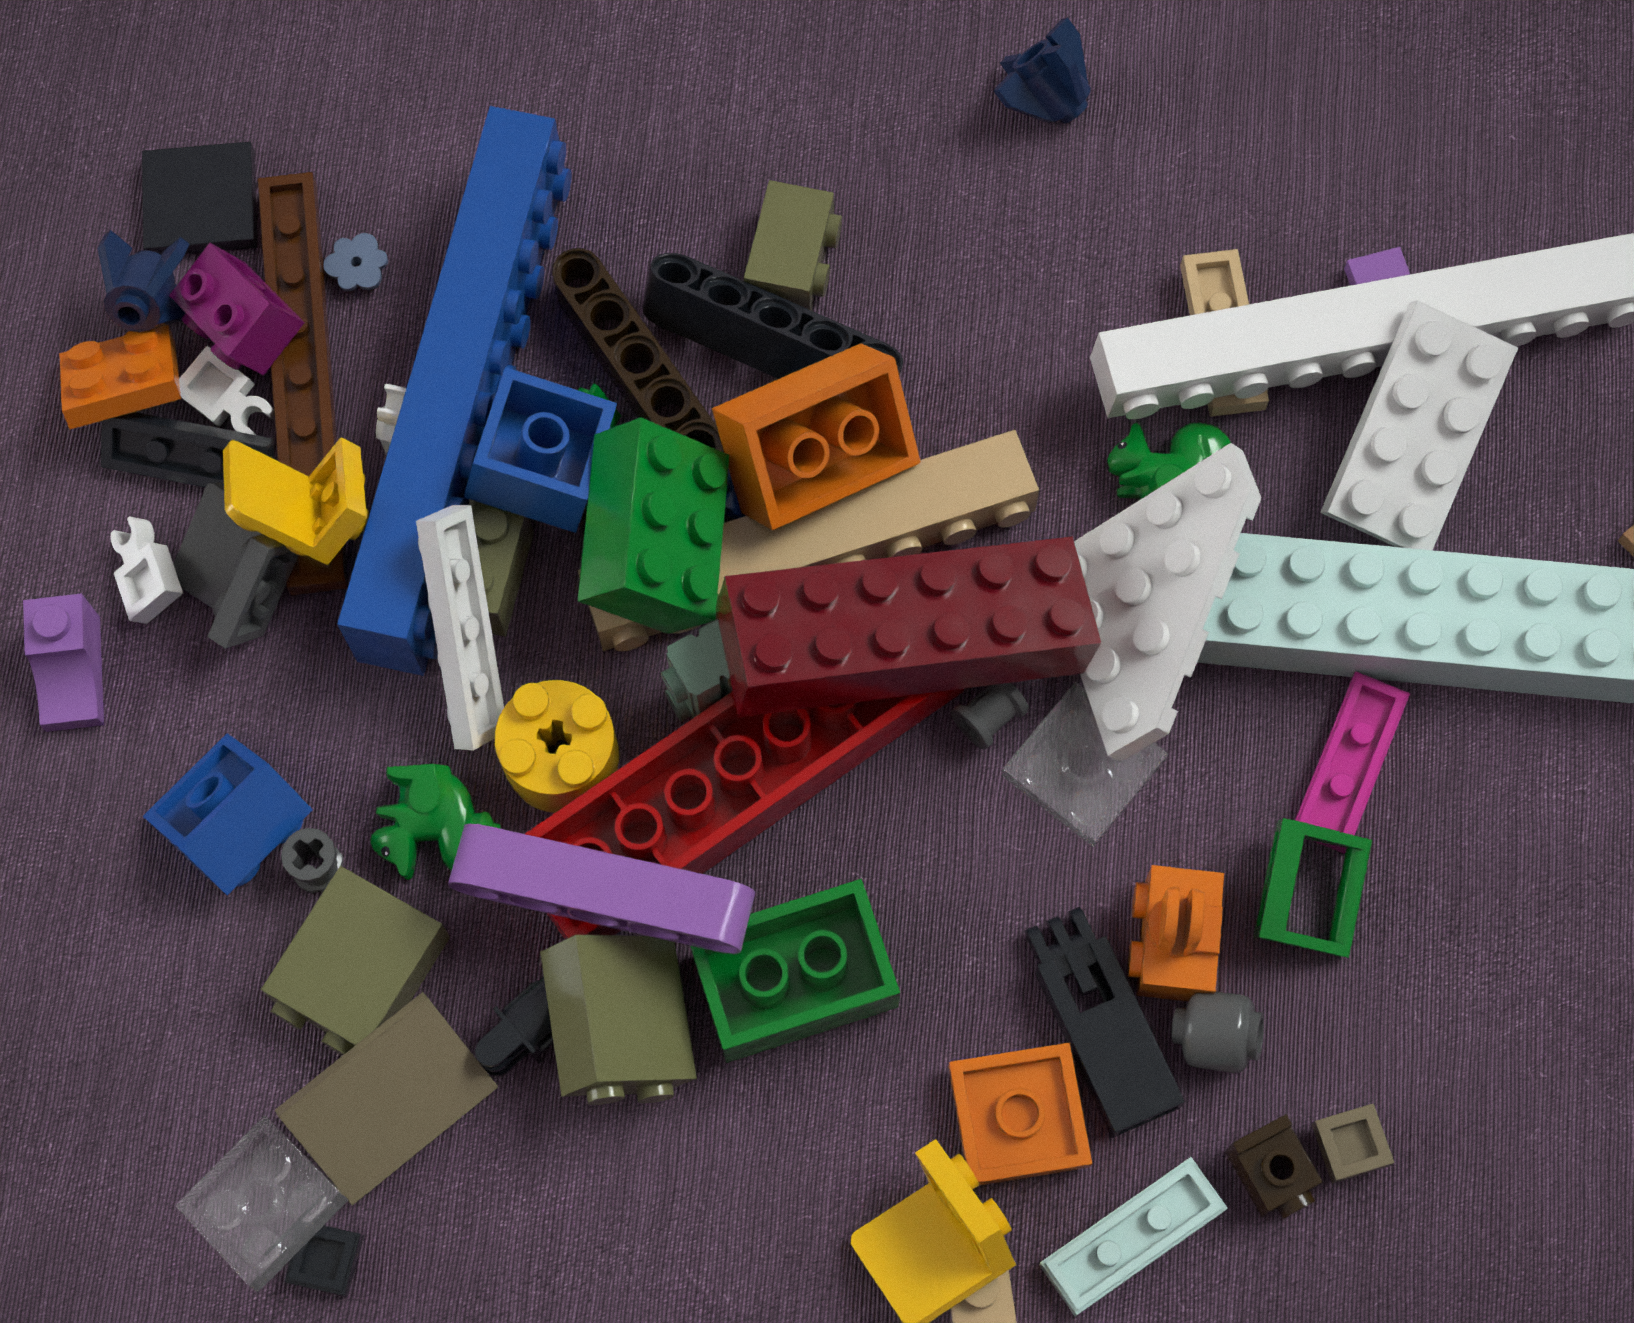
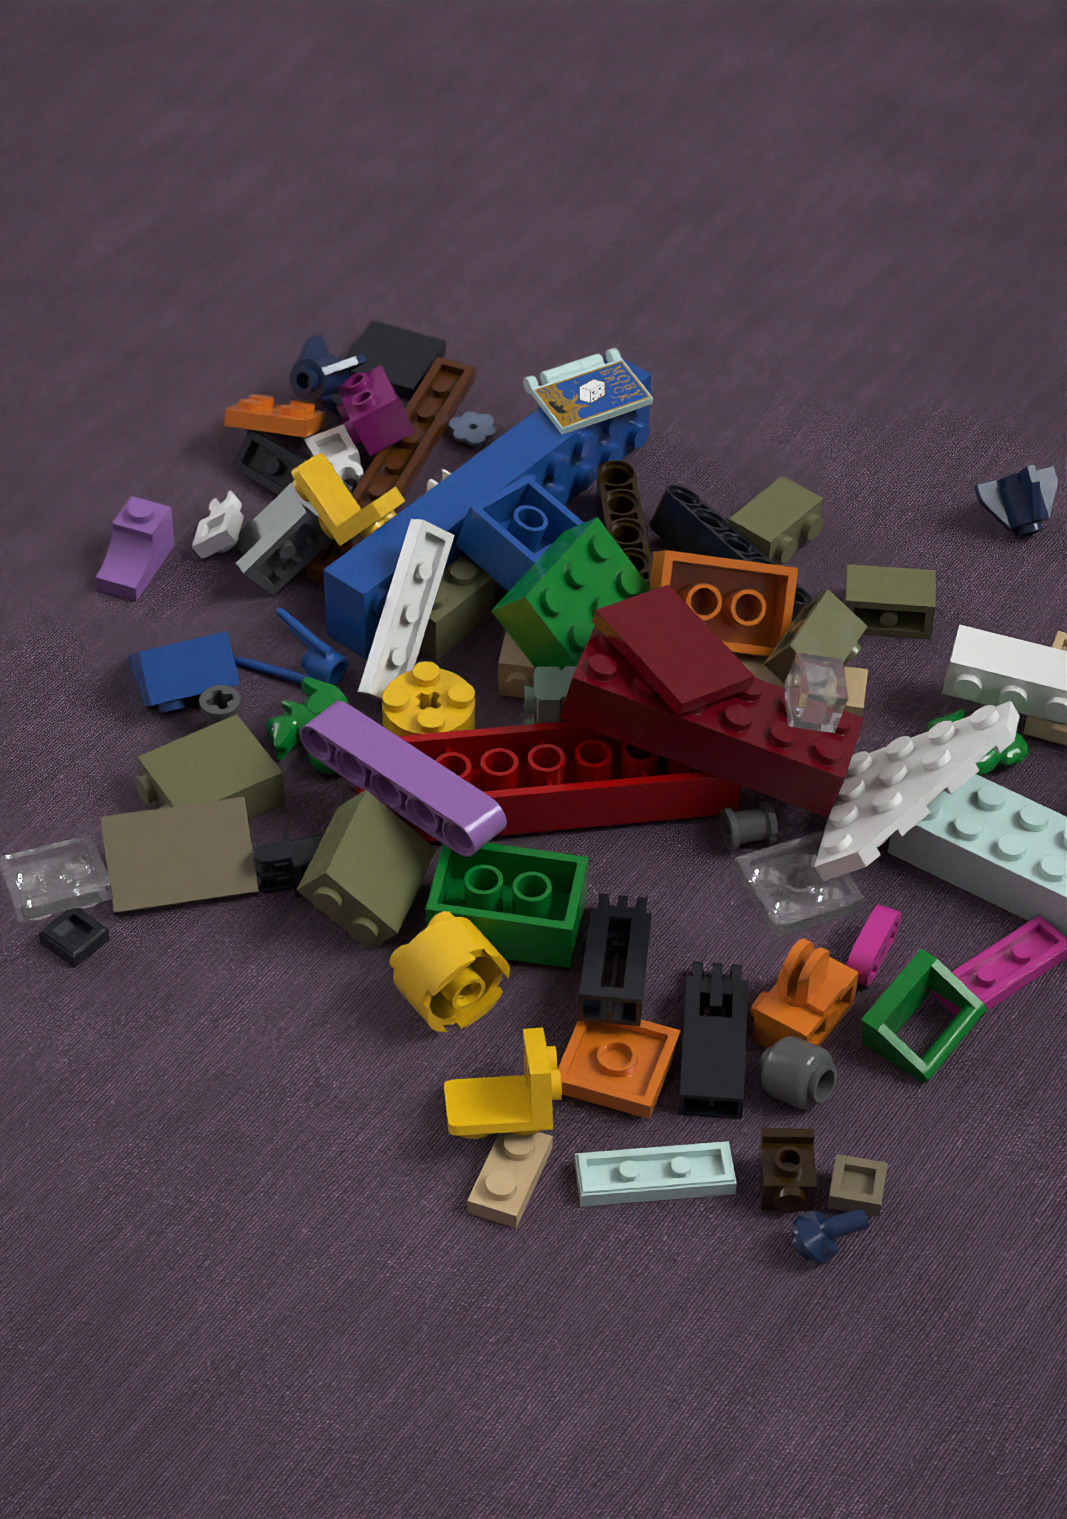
camera: 25 degrees right, 25 degrees down
(383, 718) = (318, 660): none -> blue plant
(498, 187) = (588, 391): none -> piece
(790, 1111) = (449, 972): none -> yellow brick
(838, 582) = (673, 649): none -> dark red tile
(957, 444) = (820, 629): none -> olive brick
(960, 1007) = (614, 988): none -> black hinge
(975, 300) = (892, 599): none -> olive brick
(1023, 554) = (815, 692): none -> clear brick
(1207, 810) = (874, 943): none -> dark pink beam
(1348, 1238) = (815, 1235): none -> dark blue plate

